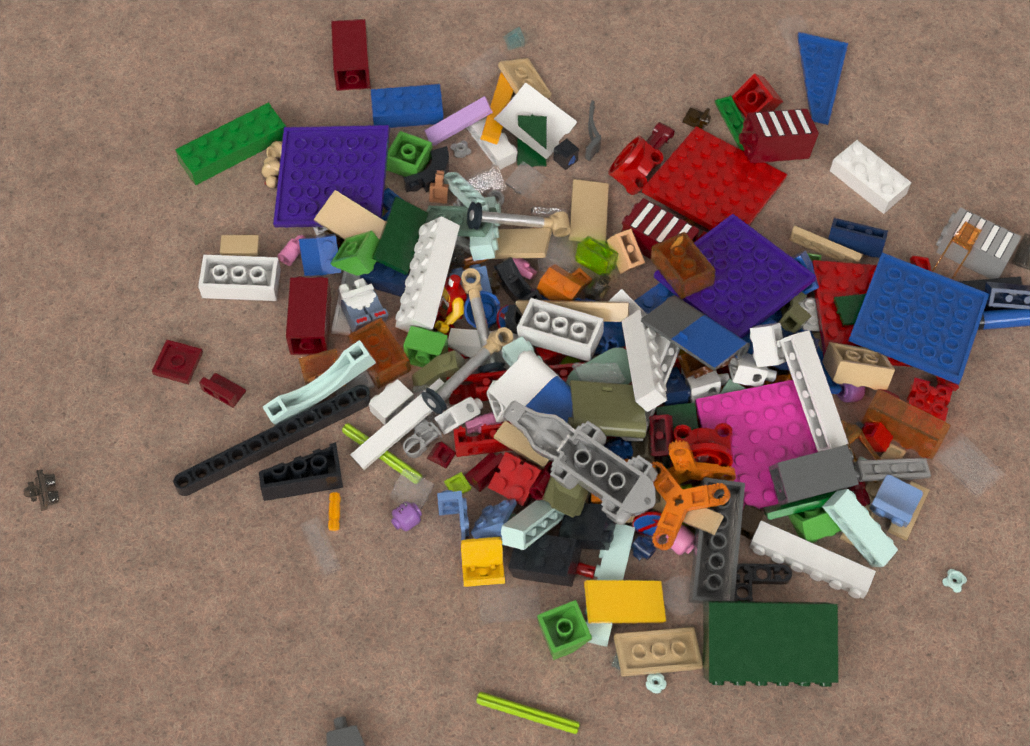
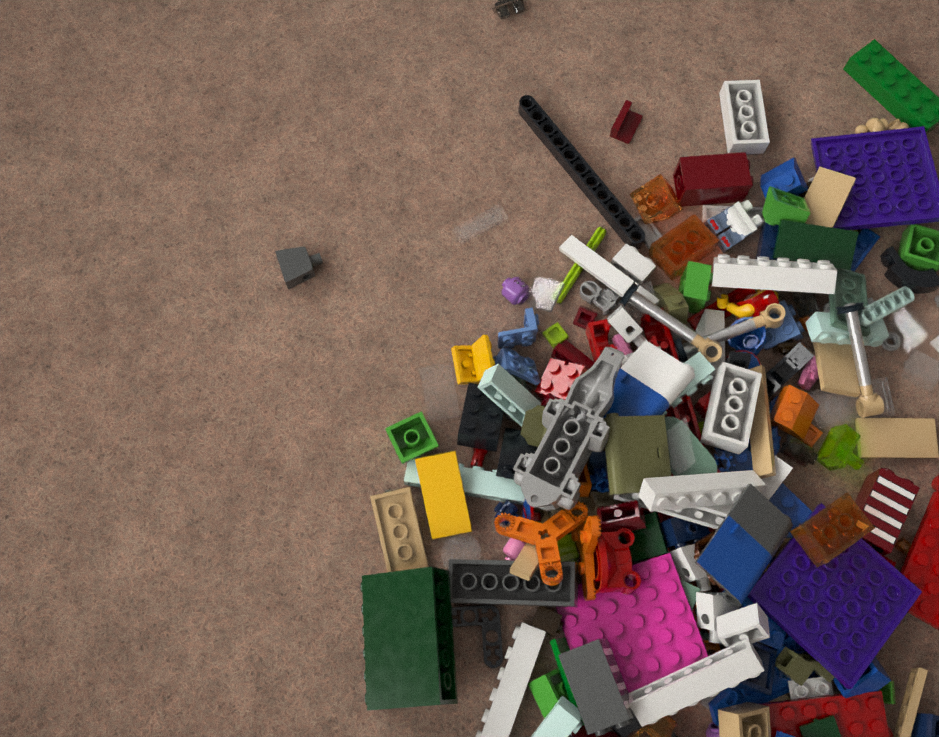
camera: 85 degrees right, 10 degrees up
(177, 361) = (647, 83): dark red plate -> none
(240, 245) = (777, 113): tan brick -> none
(290, 251) = (780, 156): bright pink hinge -> none
(303, 475) = (547, 203): black wedge -> none
(334, 511) = (515, 231): light orange axle -> none
(348, 366) = (657, 215): light aqua arch -> none
(438, 190) = (886, 282): nougat plate -> none
(528, 712) = (335, 416): lime axle -> none
(628, 251) = (851, 477): light nougat brick -> none
(655, 688) = (364, 531): light aqua plate -> none

